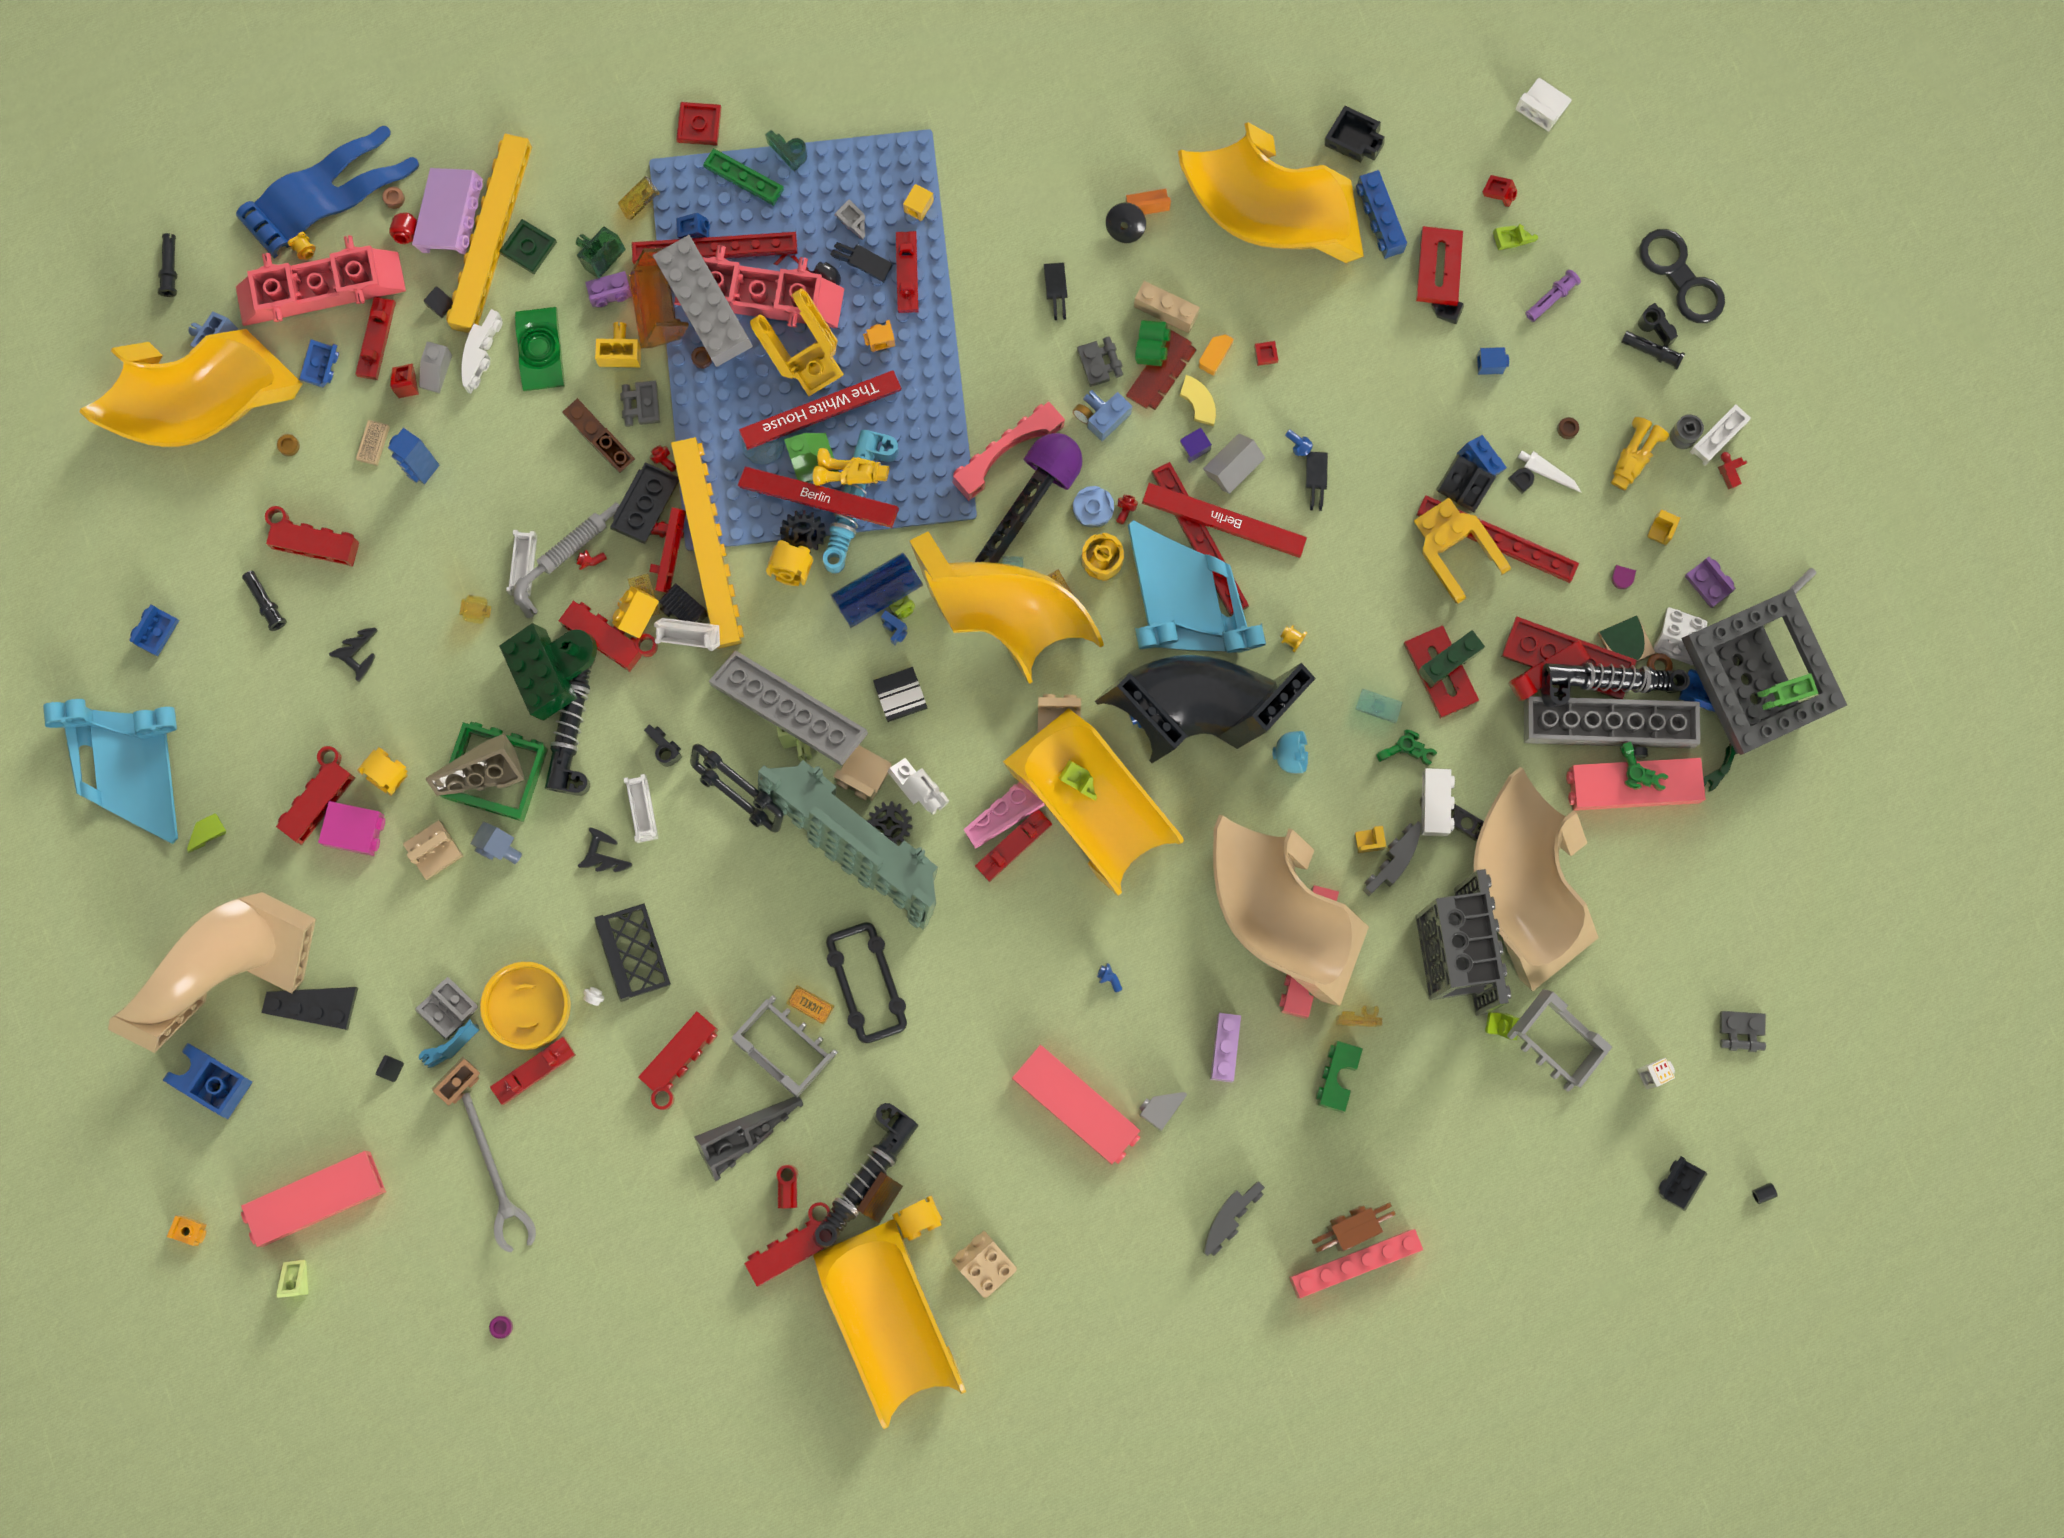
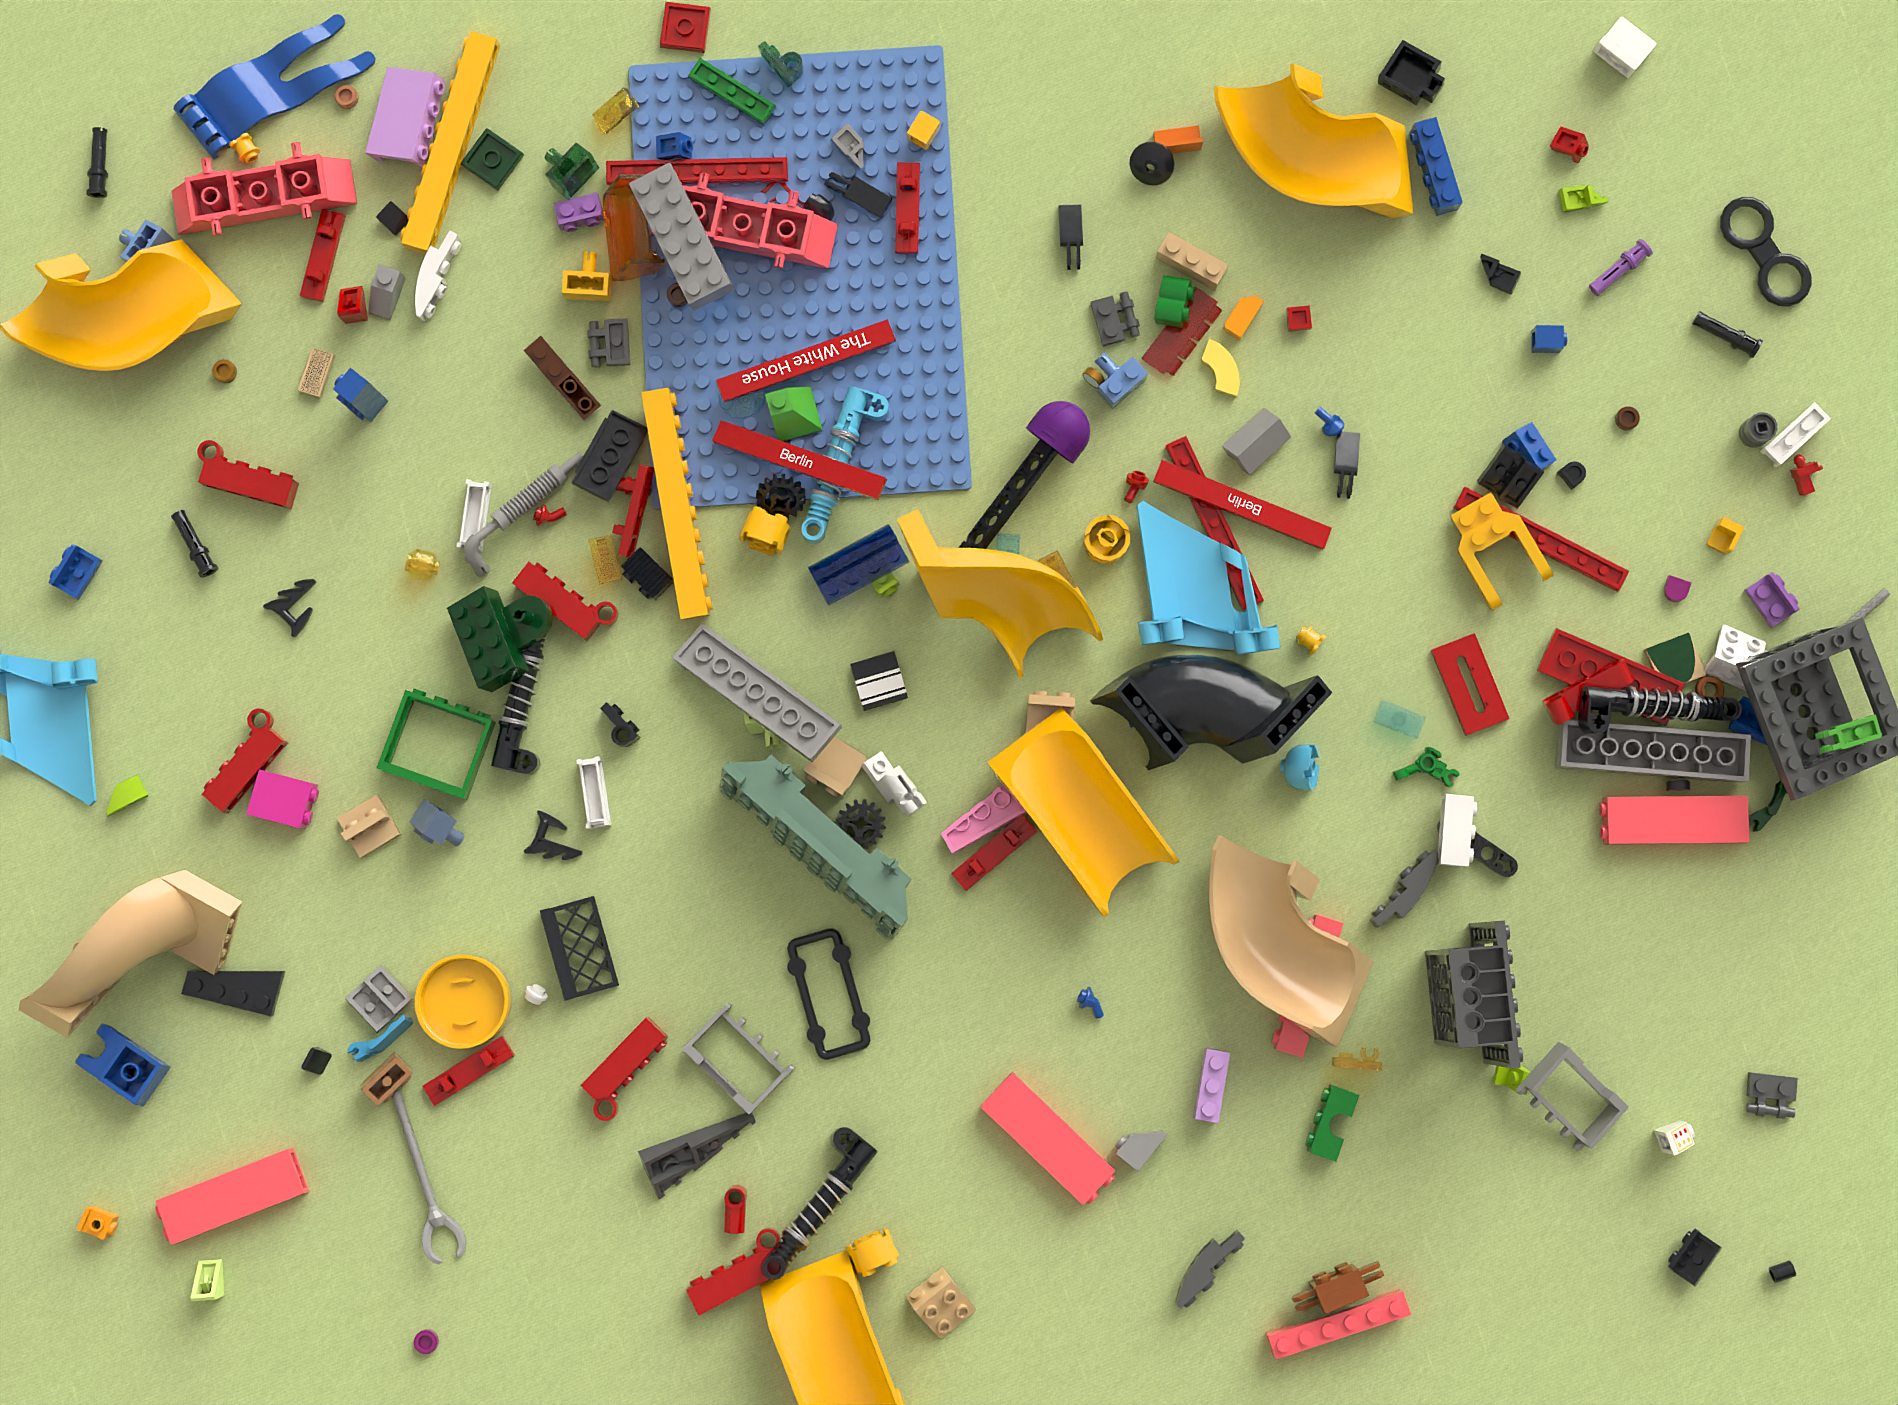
camera: 10 degrees right, 5 degrees up
(318, 363) = (260, 281): blue bracket -> none
(382, 771) = (317, 740): yellow brick -> none
(403, 228) = (356, 132): red head -> none
(484, 766) = (427, 740): dark tan wedge -> none
(539, 348) = (501, 275): green slope -> none
(634, 611) = (594, 577): yellow brick -> none
(660, 454) = (628, 401): red plate -> none
(687, 633) = (651, 604): white container -> none
(761, 798) = (724, 796): black bar -> none
(810, 1005) = (767, 1015): clear yellow tile -> none
(811, 366) = (798, 311): yellow plate -> none
(854, 470) = (842, 433): yellow piece -> none
(879, 337) = (874, 281): light orange brick -> none
(879, 1197) = (833, 1227): reddish brown tile -> none
(892, 623) = (874, 602): blue bracket -> none
(1043, 421) = (1050, 385): coral arch -> none
(1079, 779) = (1068, 787): lime slope -> none
(1093, 507) = (1099, 482): light blue tile -> none
(1196, 444) = (1215, 418): dark purple panel -> none
(1370, 840) = (1381, 866): yellow panel -> none
(1426, 288) = (1480, 254): red piece -> none
(1451, 658) = (1482, 673): dark green arch -> none
(1534, 904) = (1542, 898): tan piece -> none
(1541, 466) = (1592, 458): white bar -> none
(1632, 460) = (1696, 460): yellow piece -> none
(1638, 774) = (1677, 811): green piece -> none
(1662, 327) = (1742, 313): black plate -> none

